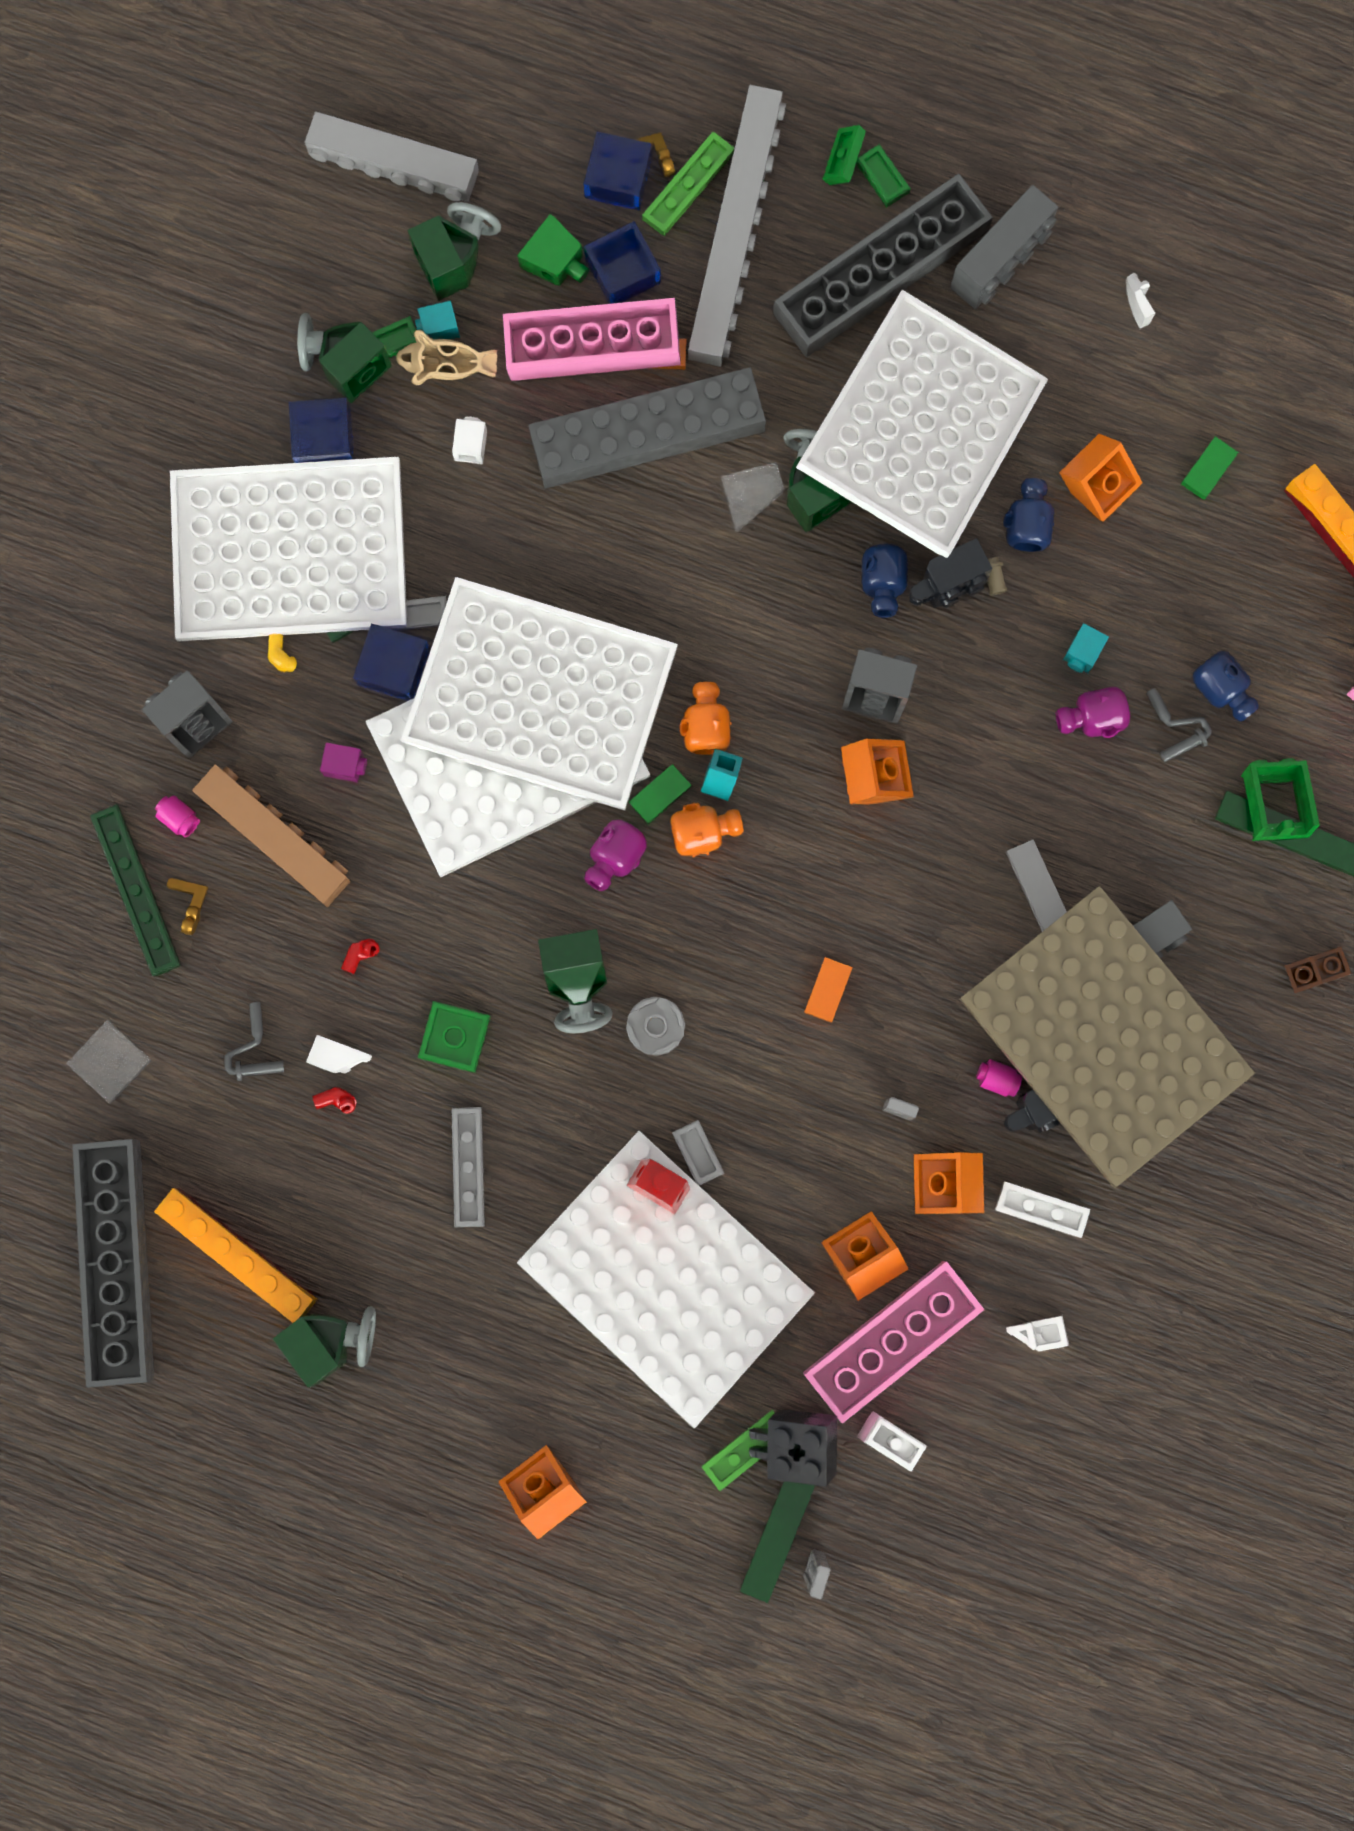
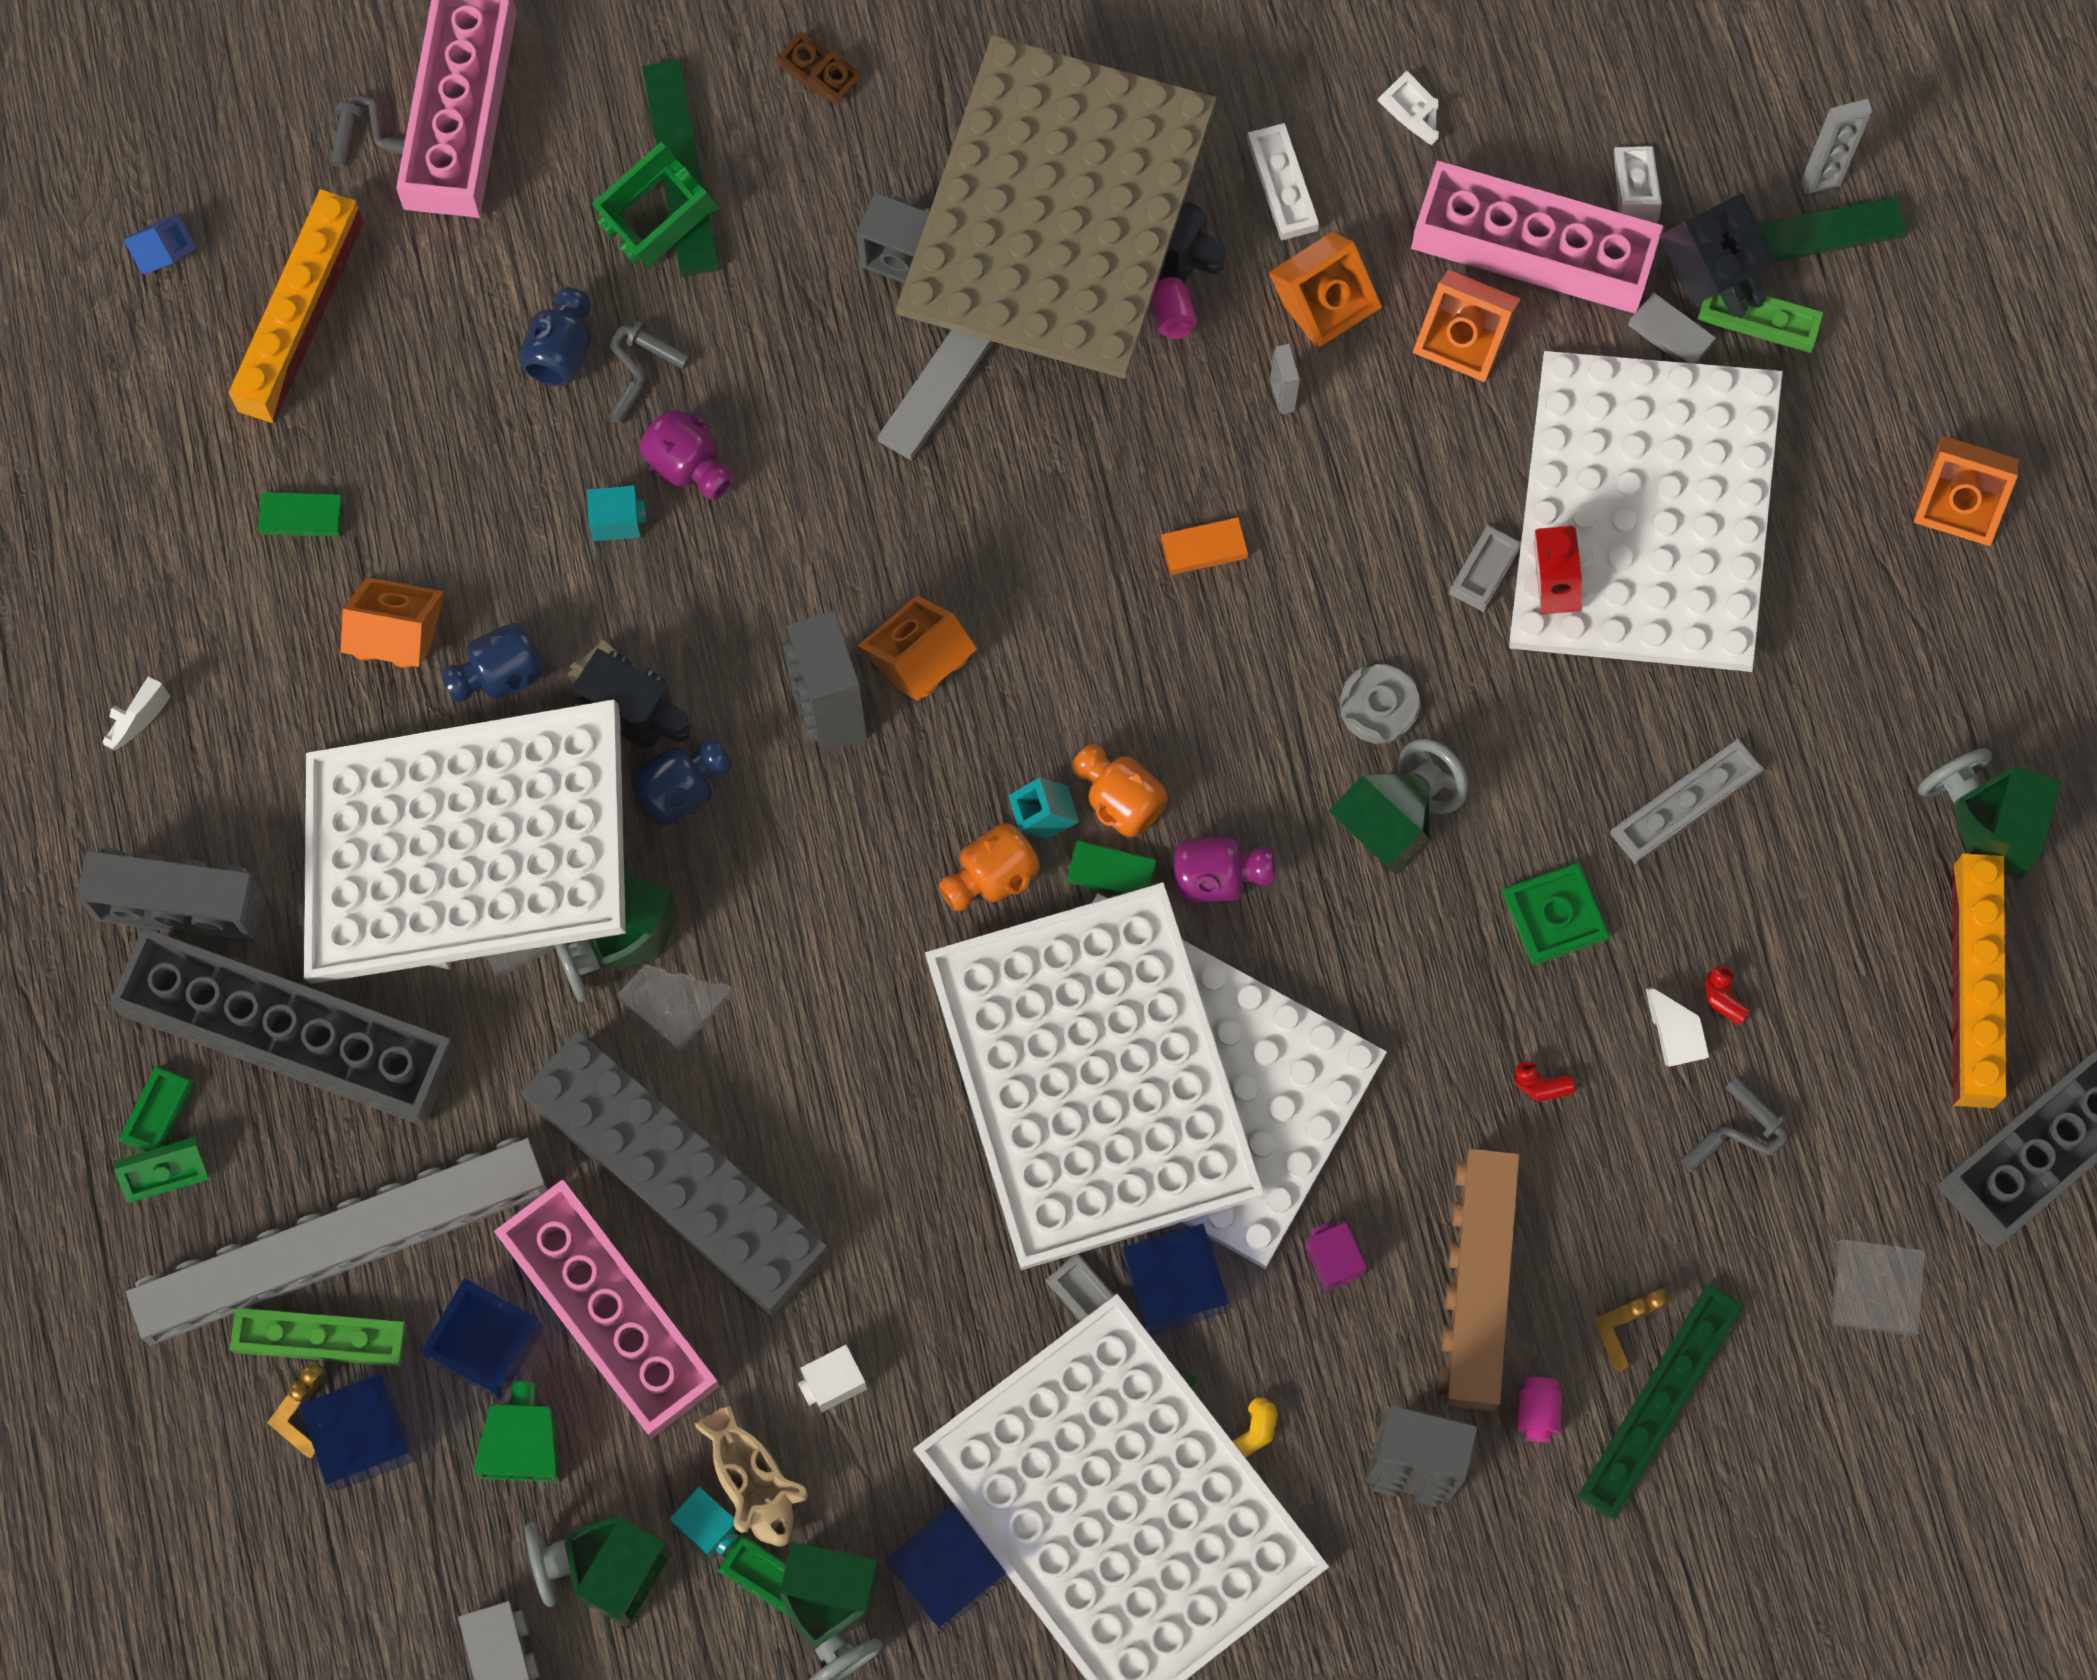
camera: 125 degrees left, 10 degrees down
(775, 1386) = (1671, 330): none -> light grey tile

